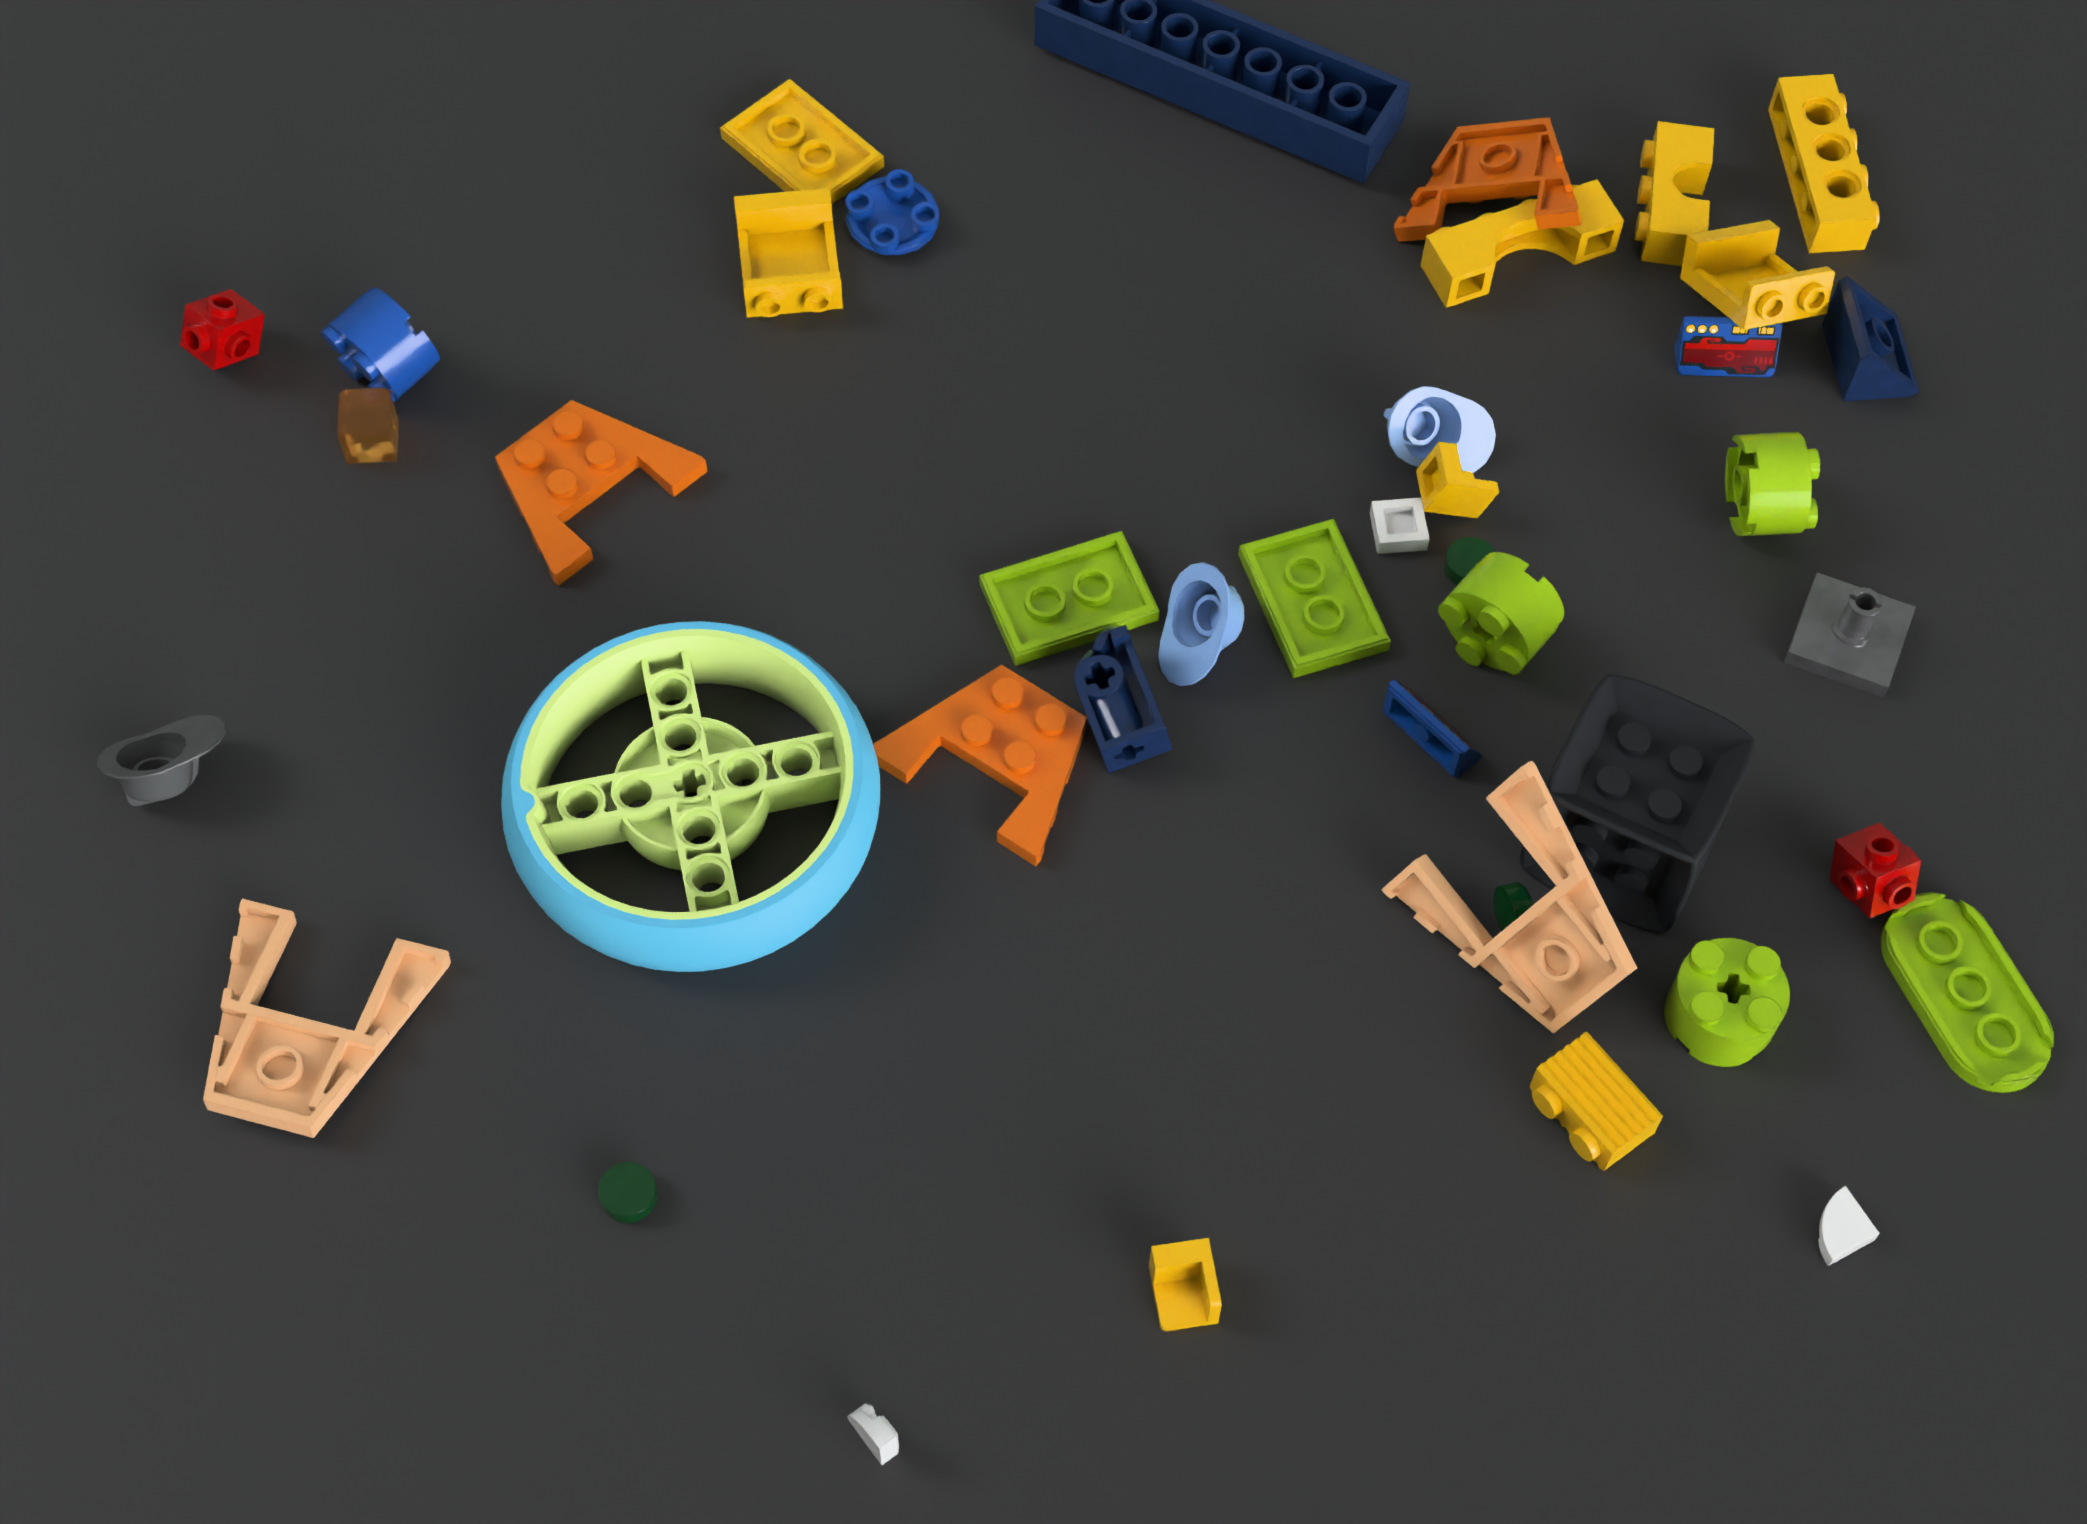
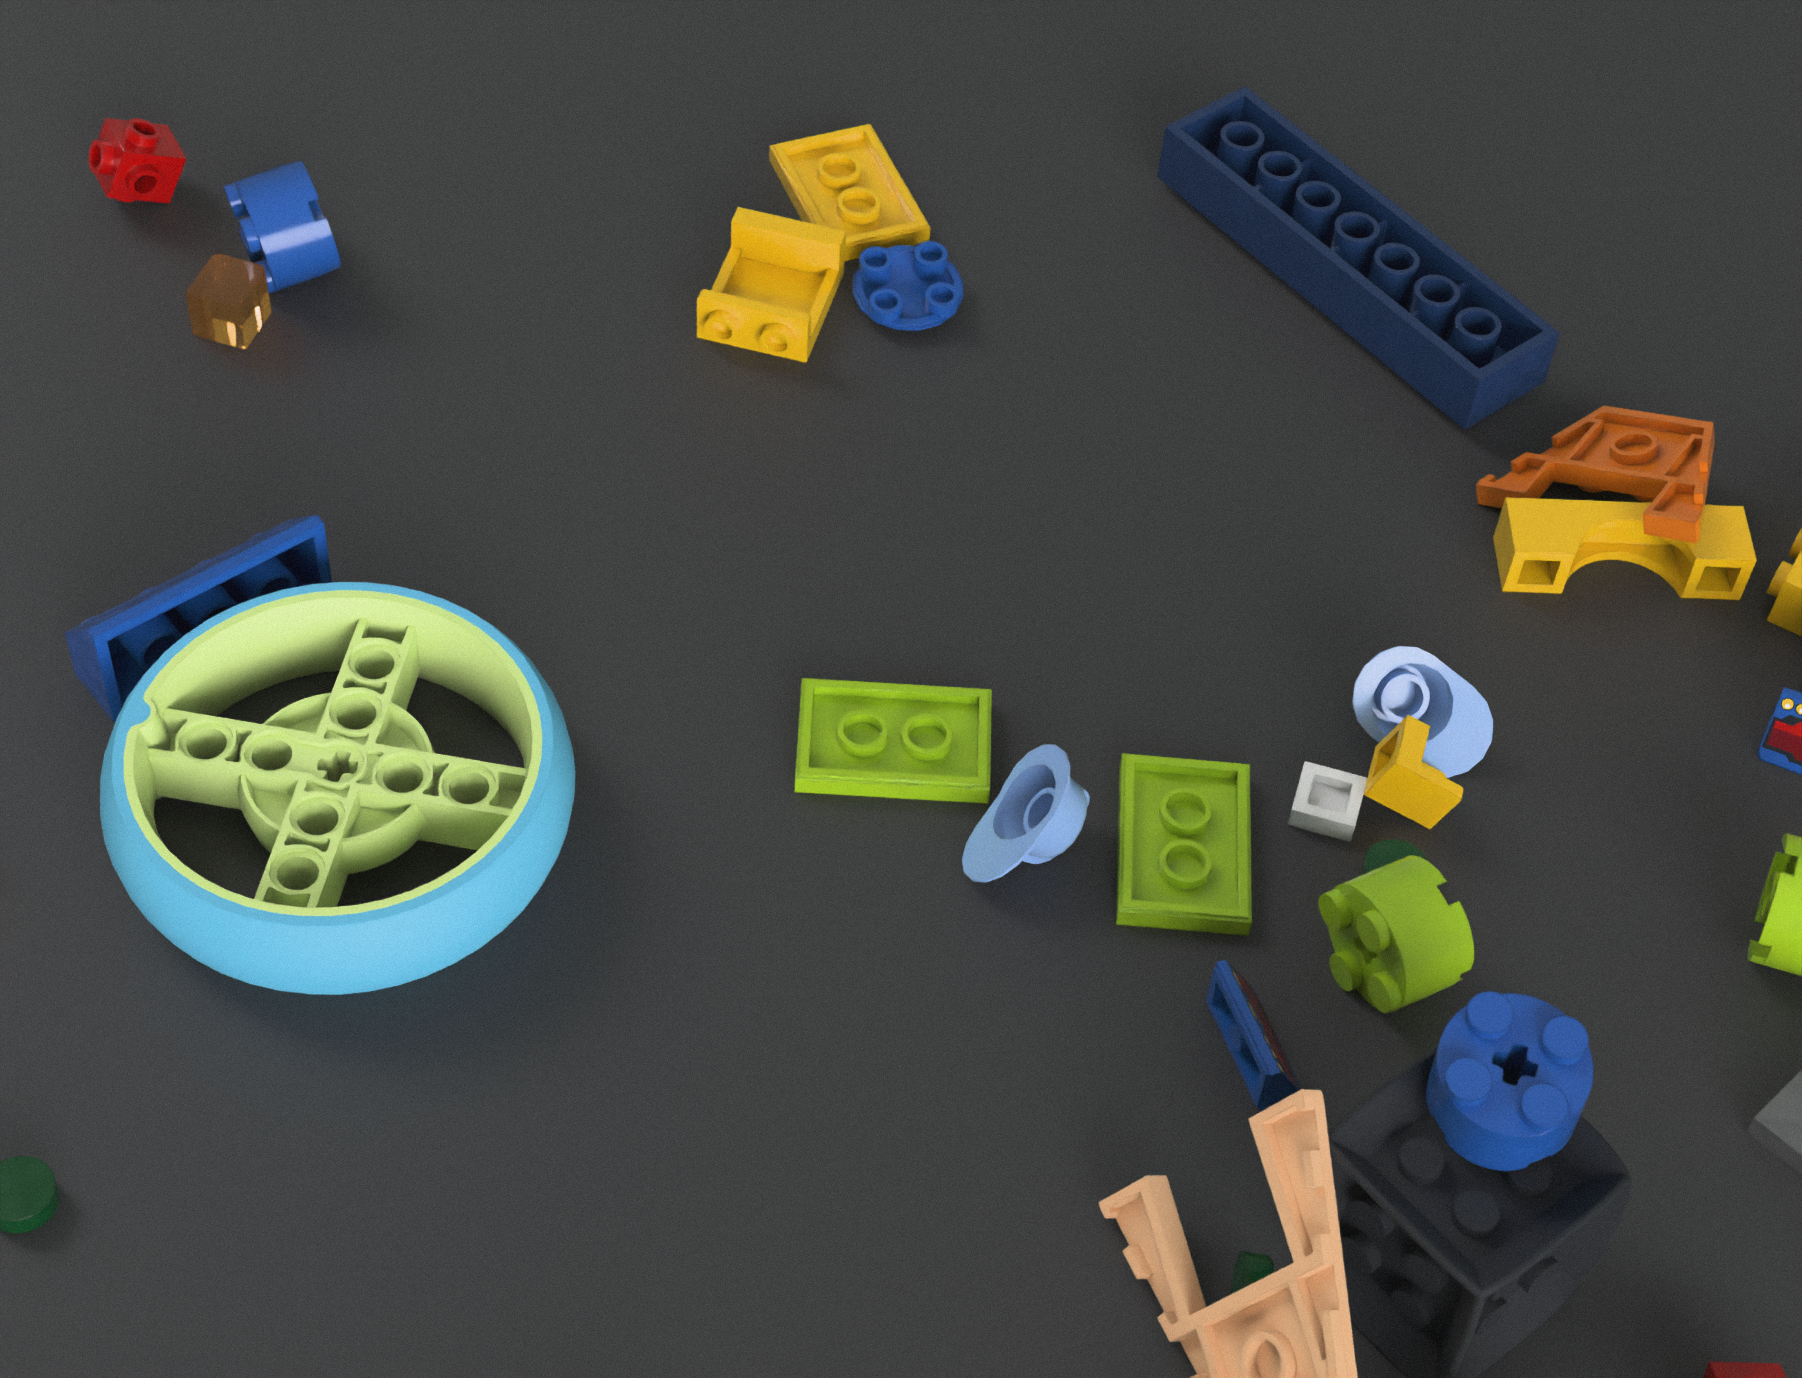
camera: 20 degrees right, 10 degrees down
(480, 723) = (124, 642): none -> blue slope
(575, 461) = (422, 413): orange wing -> none
(1007, 733) = (744, 860): orange wing -> none
(1124, 713) = (886, 868): dark blue piece -> none
(1652, 679) = (1518, 1042): none -> blue brick

